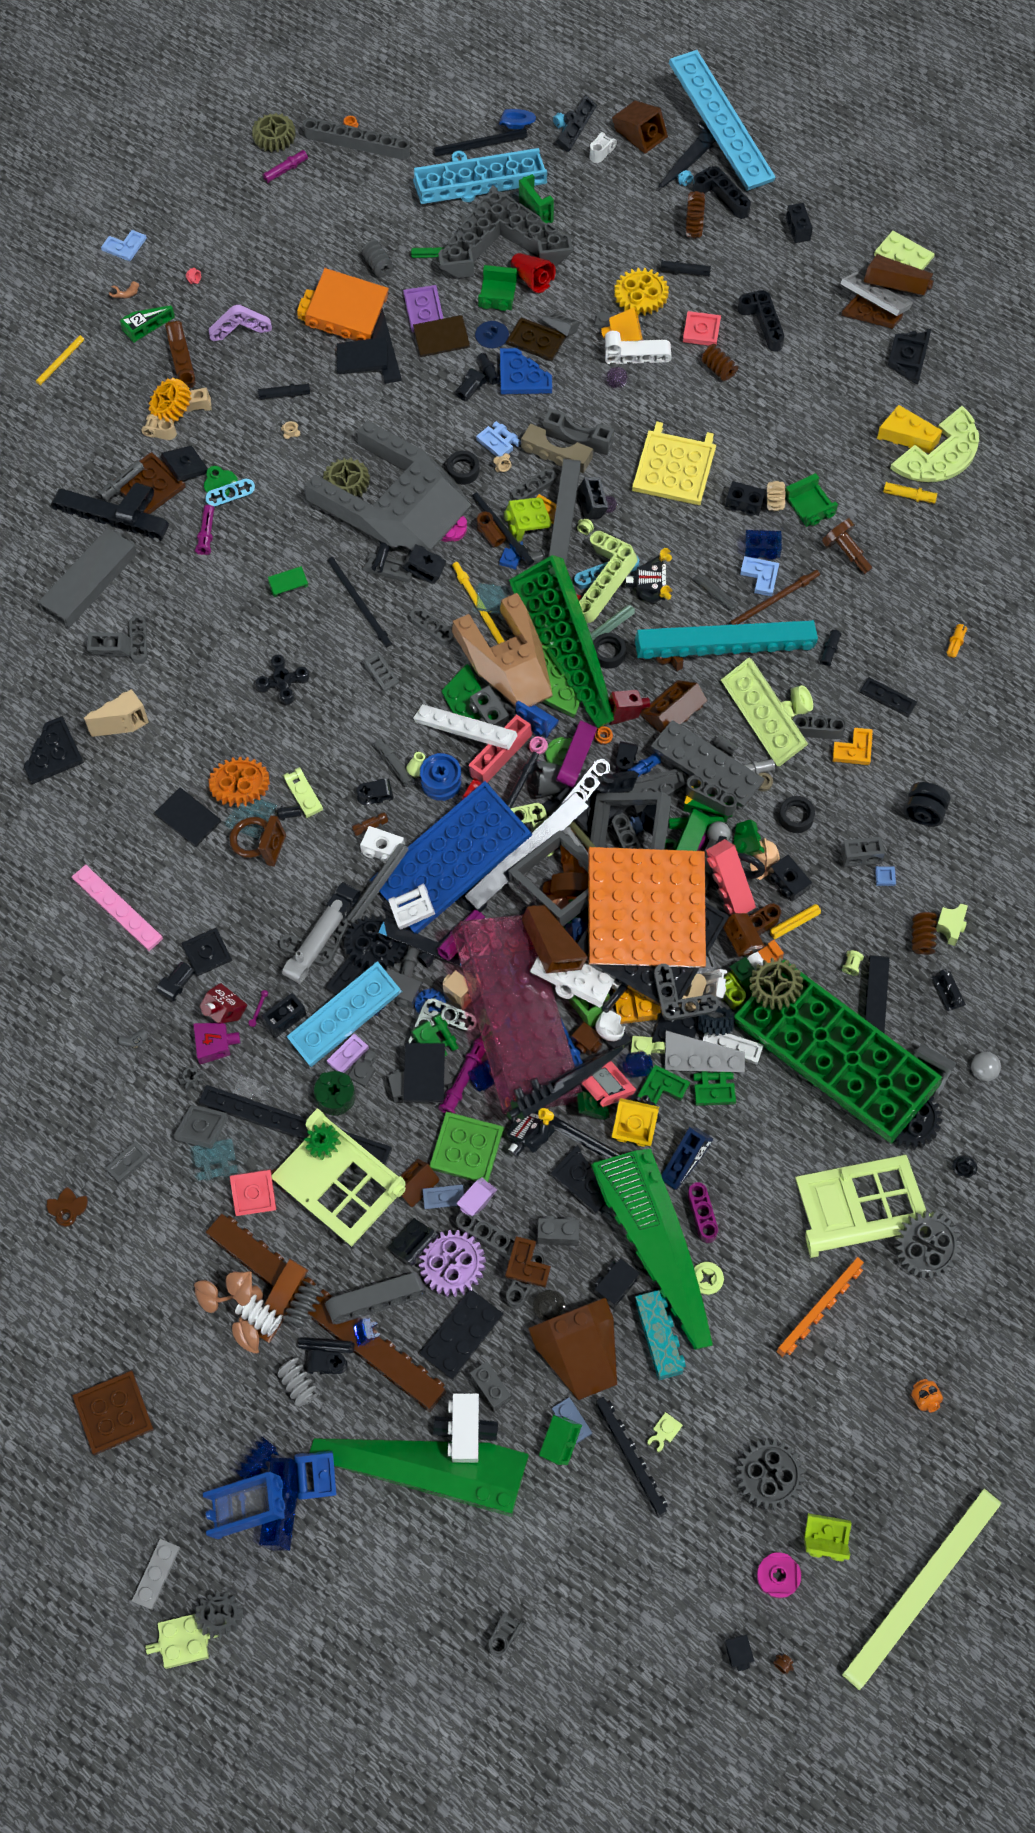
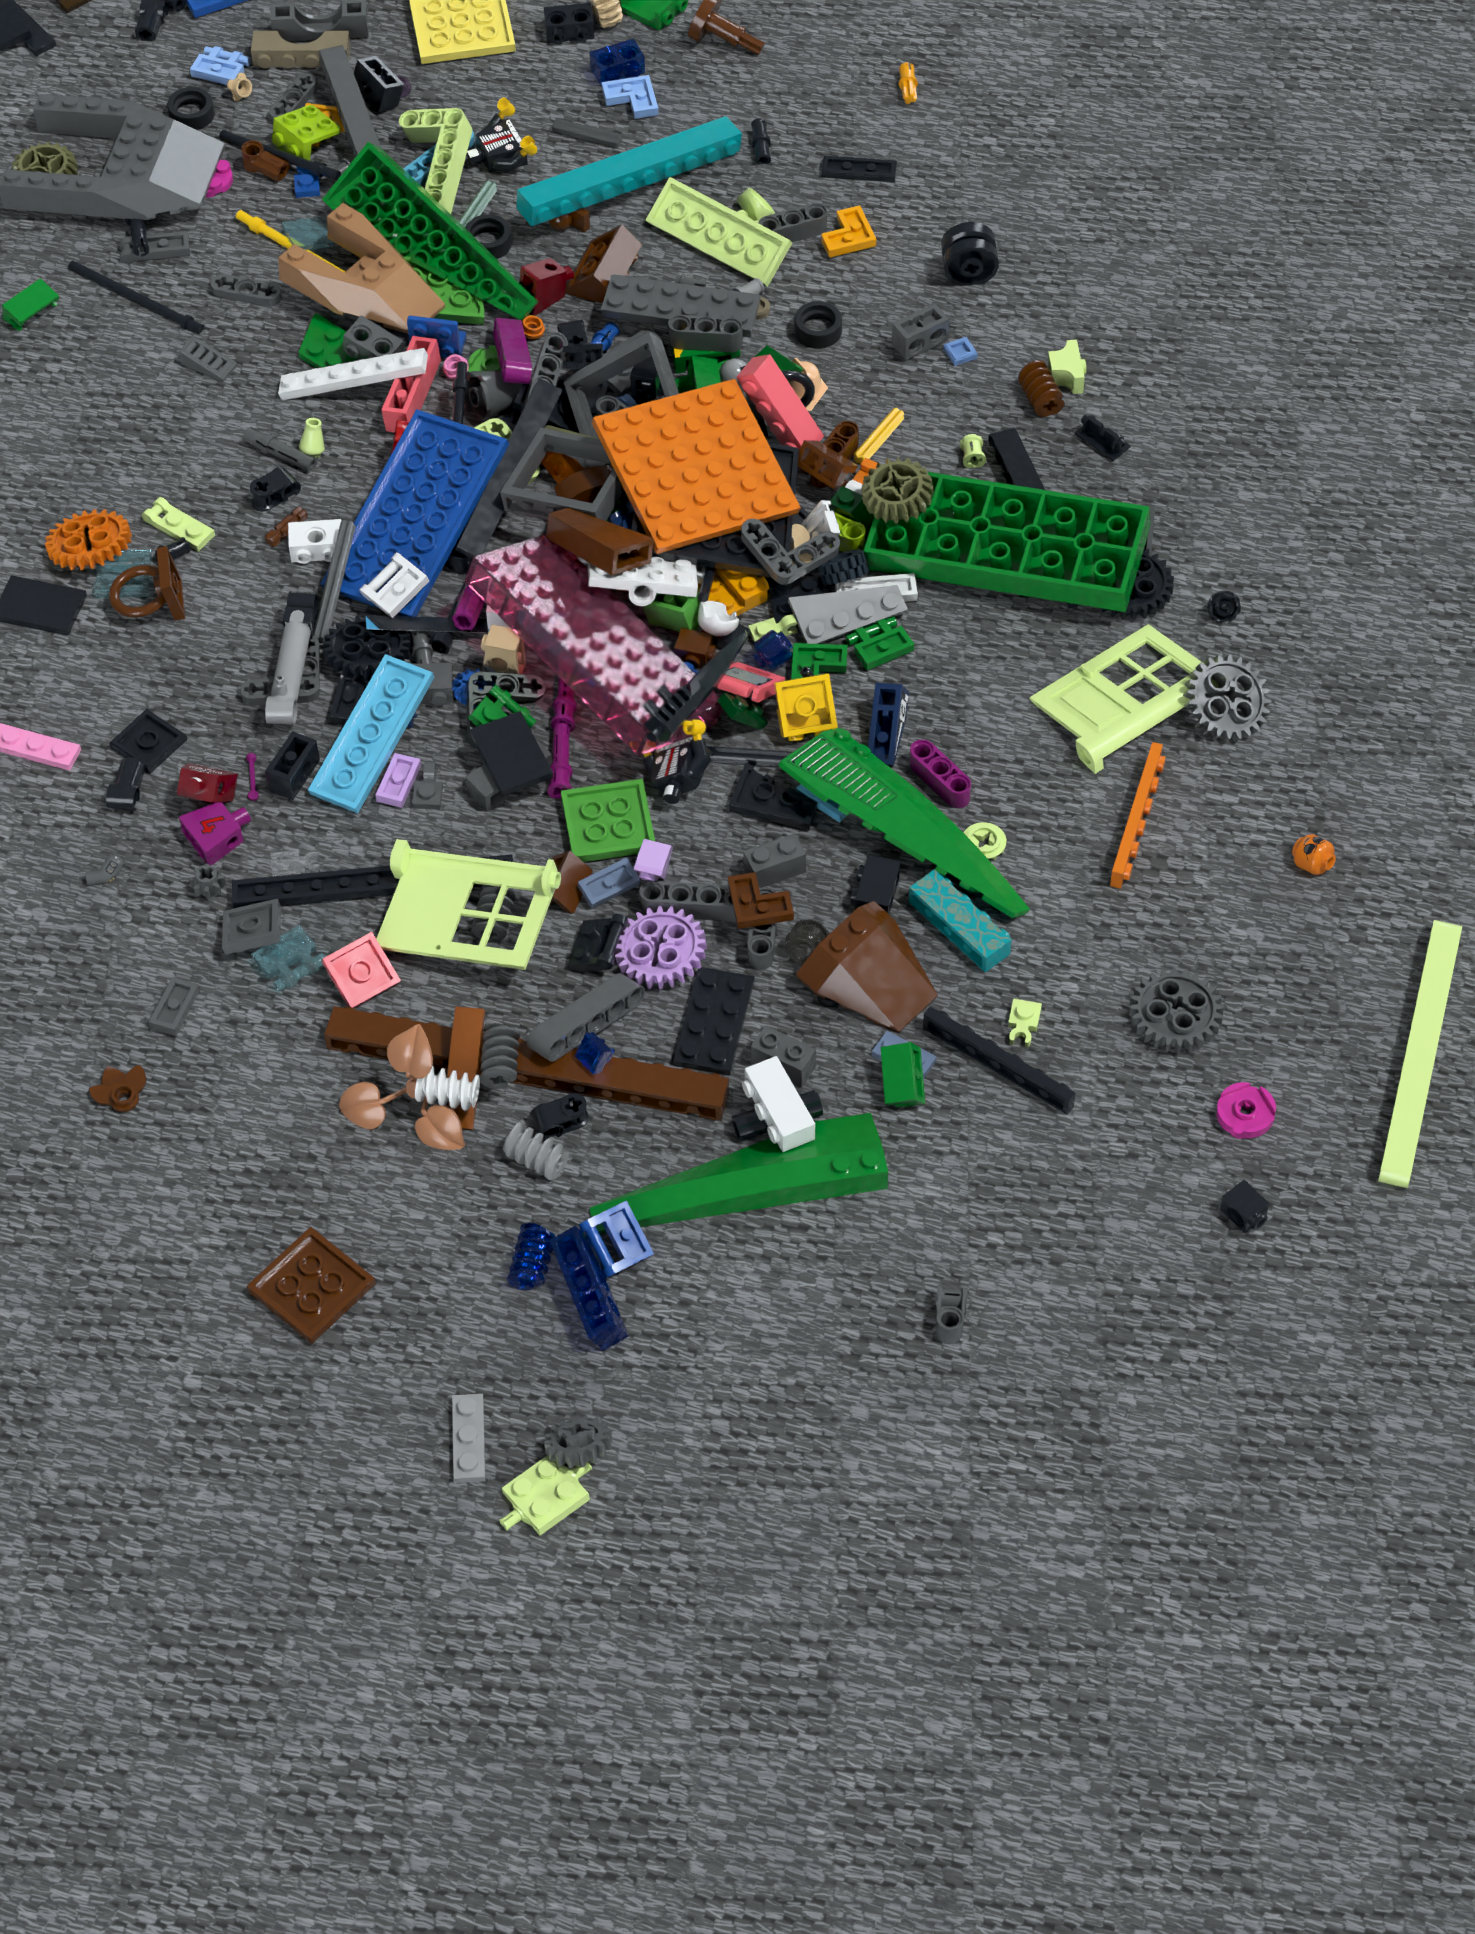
camera: 25 degrees left, 10 degrees down
(245, 1504) = (544, 1301): door -> none
(301, 675) = (82, 411): black gear -> none
(315, 1143) = (423, 872): green gear -> none
(326, 1345) = (555, 1091): black axle -> none
(343, 1098) = (408, 819): dark green brick -> none
(424, 564) = (200, 223): black brick -> none
(440, 776) = (351, 440): blue wheel -> none
(481, 1077) = (584, 737): clear blue piece -> none
(585, 524) = (378, 117): yellowish green plate -> none
(784, 1662) = (1304, 1195): reddish brown plate -> none
(788, 868) = (847, 391): black brick -> none
(801, 582) = (687, 86): reddish brown bar -> none
(827, 1537) = (1278, 1040): lime bracket -> none
(986, 1066) = (1190, 498): light grey hair -> none

